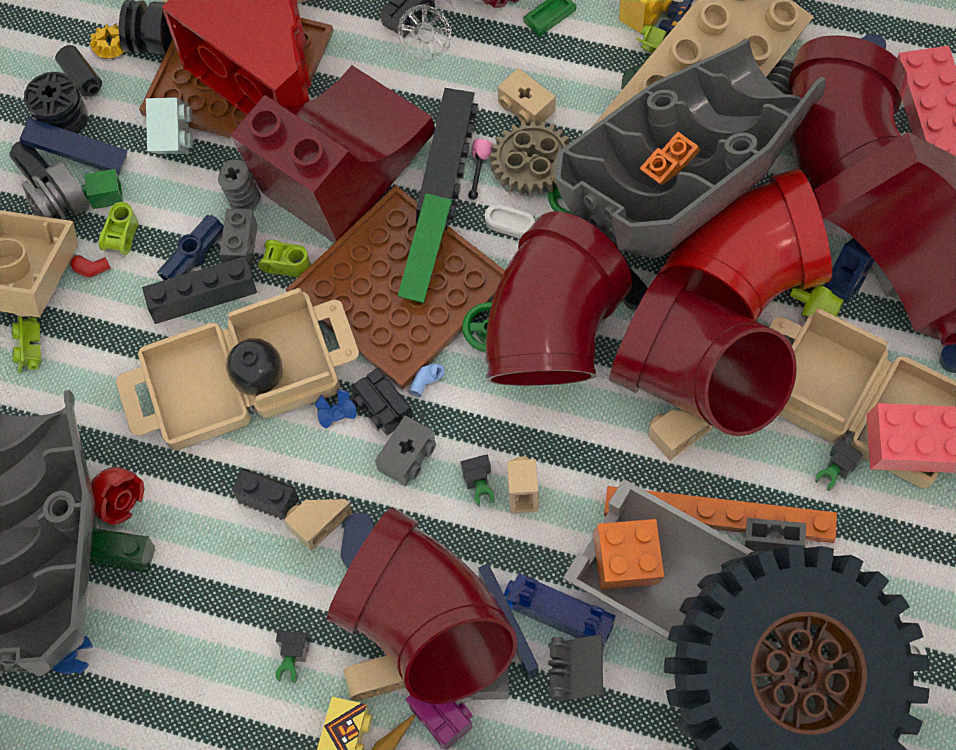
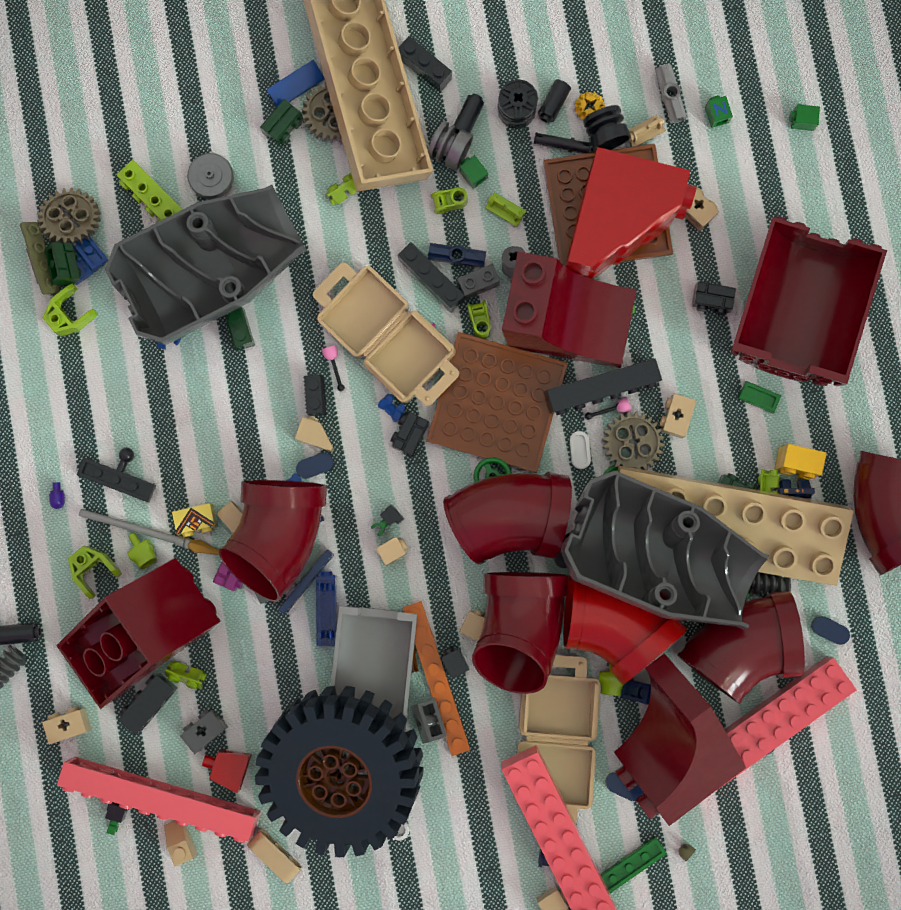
camera: 60 degrees right, 20 degrees up
(72, 146) = (493, 133): dark blue tile -> none
(88, 268) = (413, 194): red arm -> none
(116, 494) = (270, 303): red cylinder -> none
(140, 77) = (562, 143): none -> black pin
(168, 126) = (533, 190): light aqua brick -> none
(171, 176) = (505, 209): none -> lime hinge
(223, 453) = (331, 353): none -> hinge
(254, 366) = (387, 346): black cylinder -> none
(293, 648) = (229, 464): black piece -> none
(406, 437) = (375, 460): dark grey brick -> none
(424, 248) = (523, 409): green tile -> none
(425, 32) = (697, 320): clear wheel -> none
(426, 375) = (443, 452): light blue arm -> none
(576, 668) = (295, 636): dark grey hinge -> none
(628, 554) = (374, 637): orange brick -> none
(671, 159) = (645, 547): orange slope -> none
(709, 472) = (454, 661): none -> black brick
(842, 463) = (506, 740): black piece -> none

